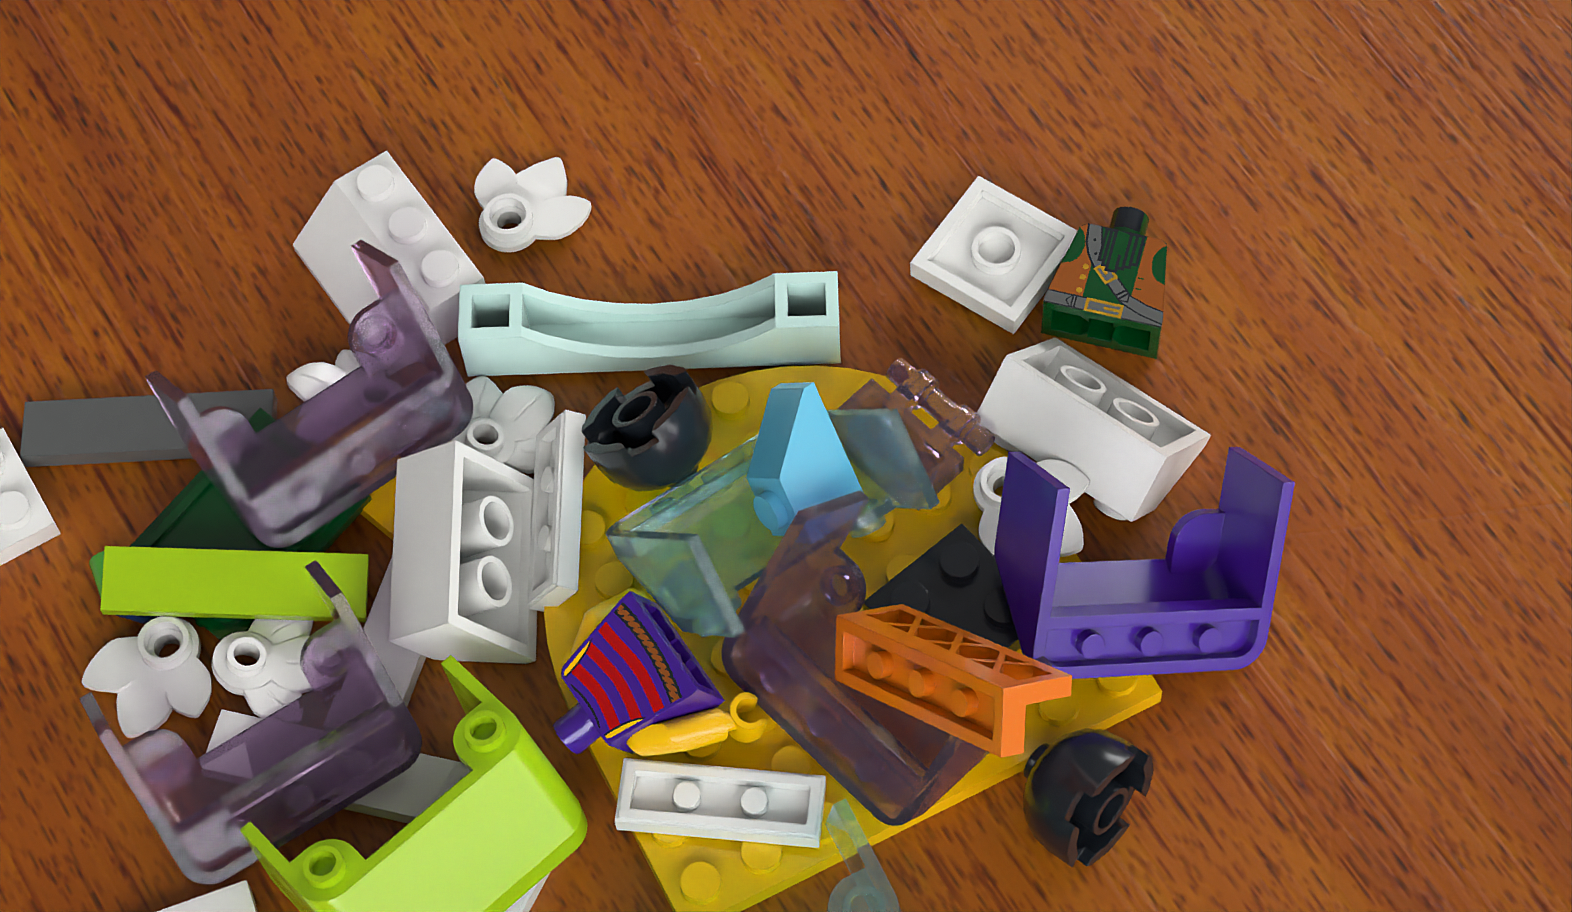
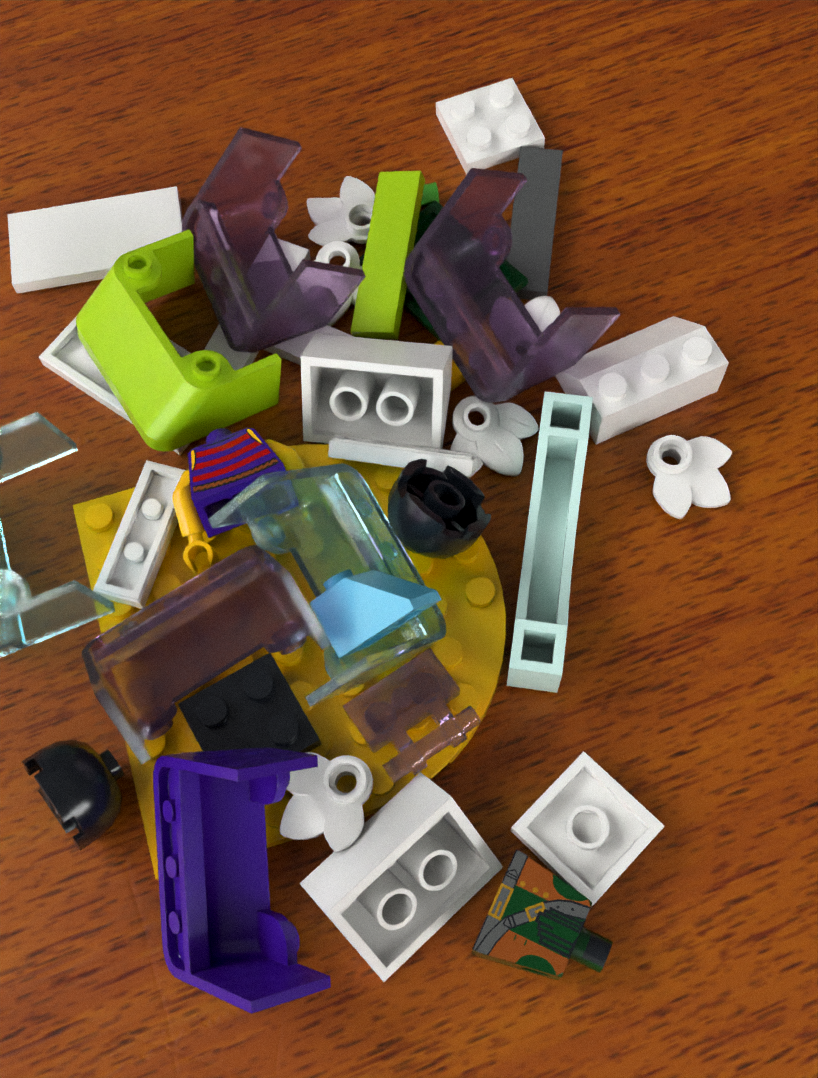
camera: 100 degrees right, 5 degrees up
(944, 675) = (132, 657): orange fence -> none

